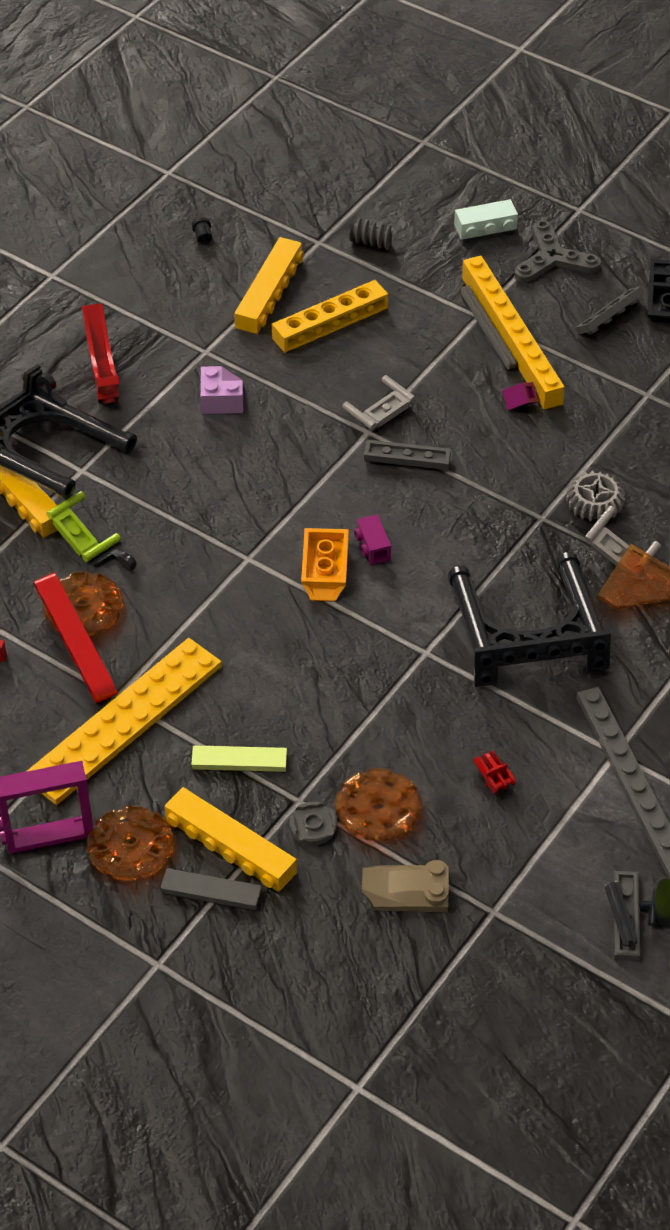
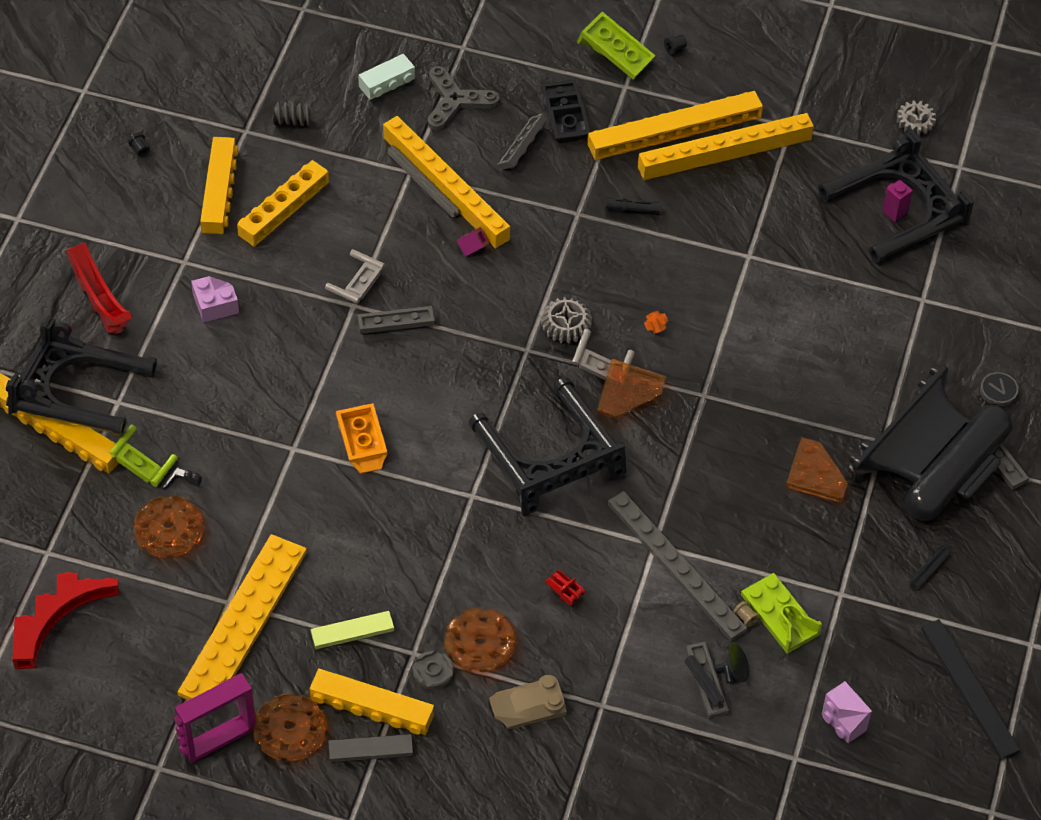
camera: 20 degrees left, 5 degrees up
(75, 638) = (176, 559): red beam -> none
(373, 539) = (395, 406): magenta brick -> none

